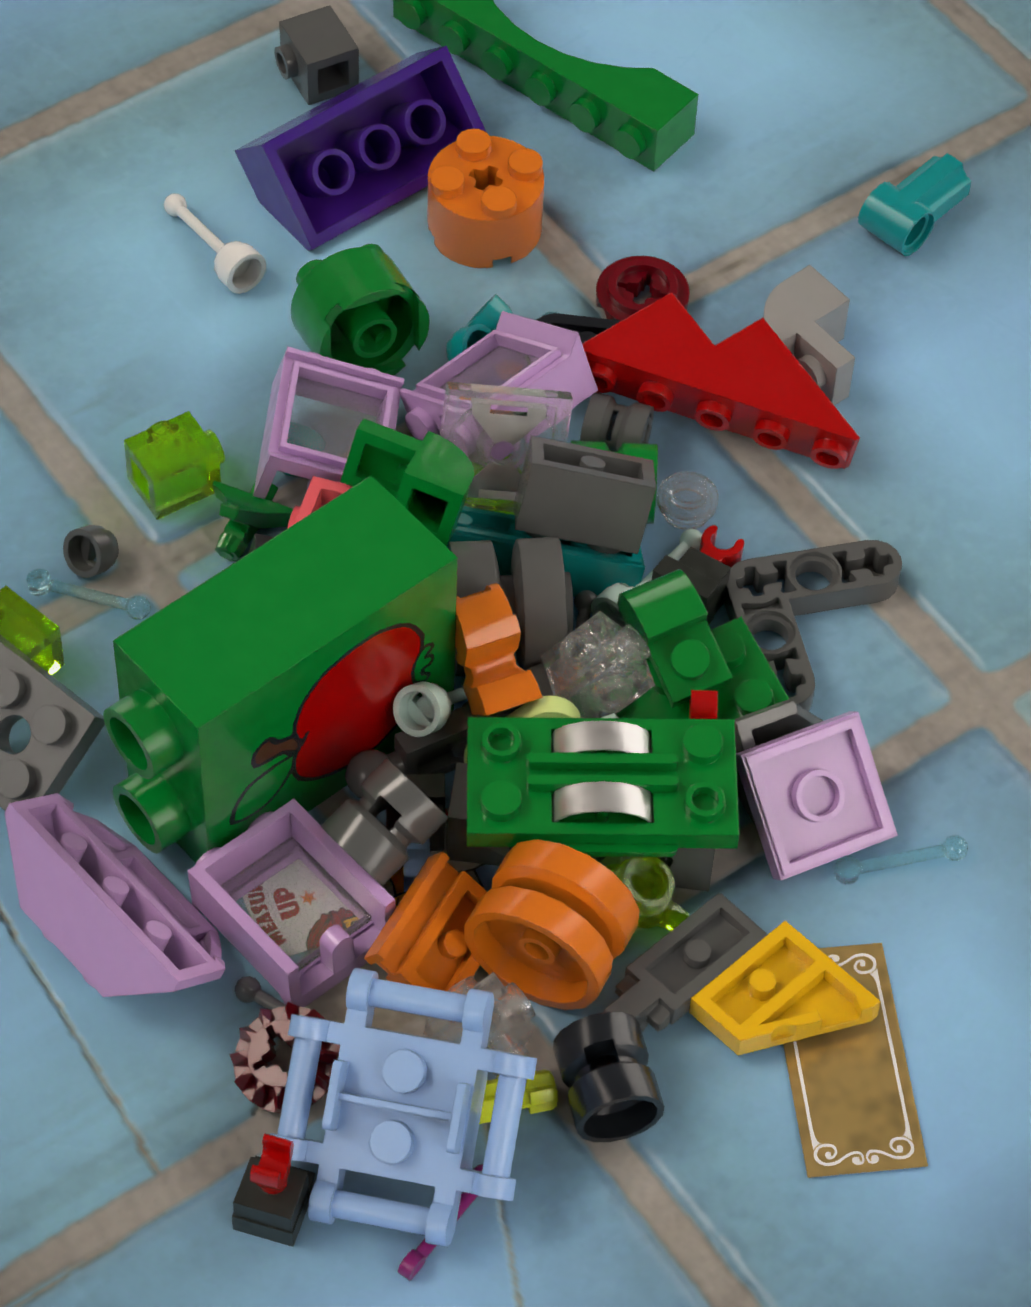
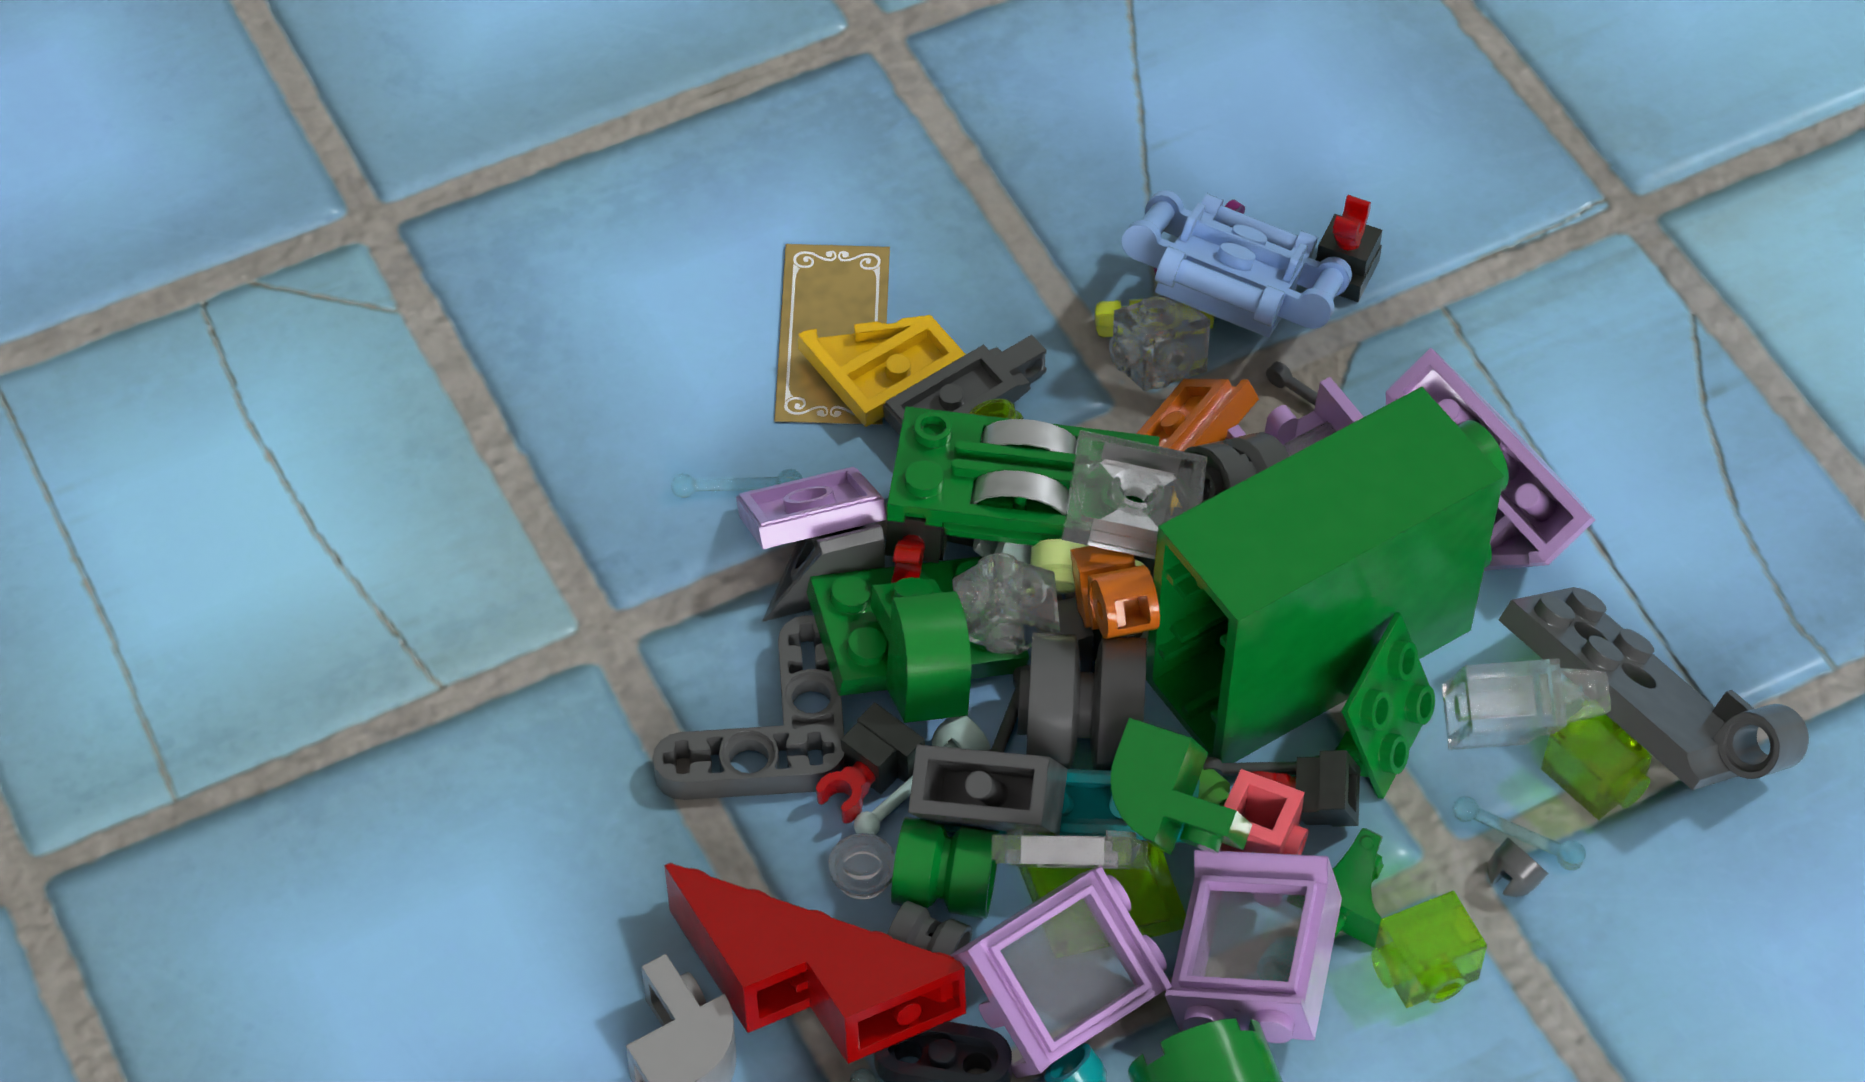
camera: 170 degrees left, 0 degrees up
(81, 620) = (1519, 702): none -> clear hinge
(255, 1049) = (1315, 355): gear -> none
(513, 749) = (1114, 468): none -> clear piece
(552, 924) = (1090, 379): orange wheel -> none
(608, 1077) = (1052, 298): black wheel -> none

